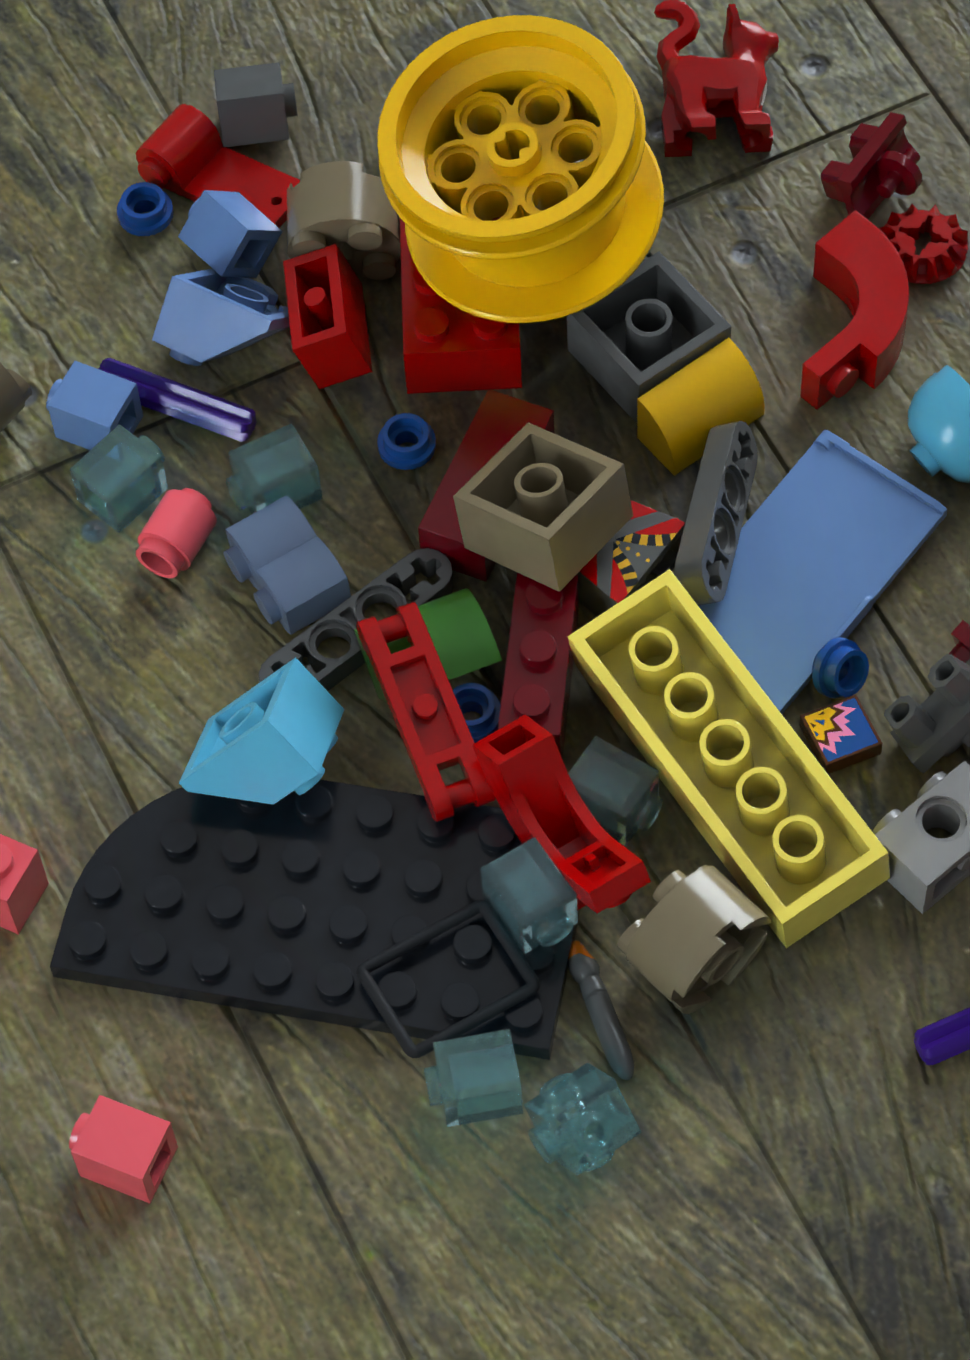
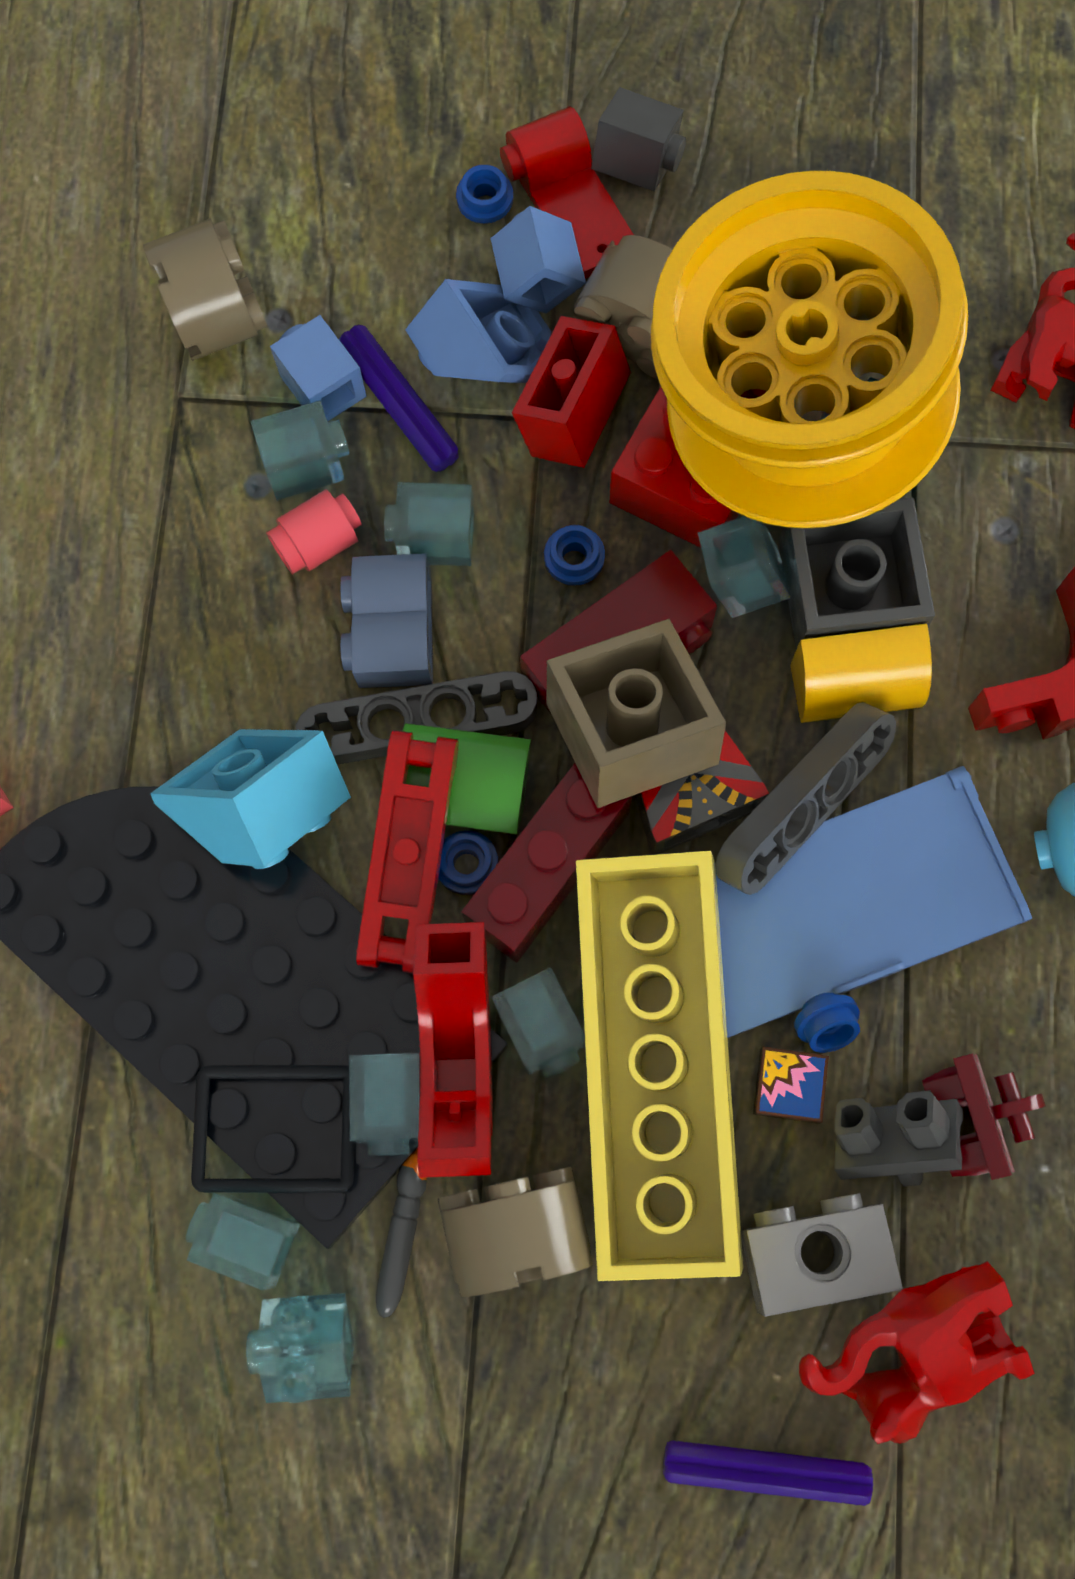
camera: 30 degrees right, 15 degrees up
(555, 372) = (743, 565): none -> clear light blue brick

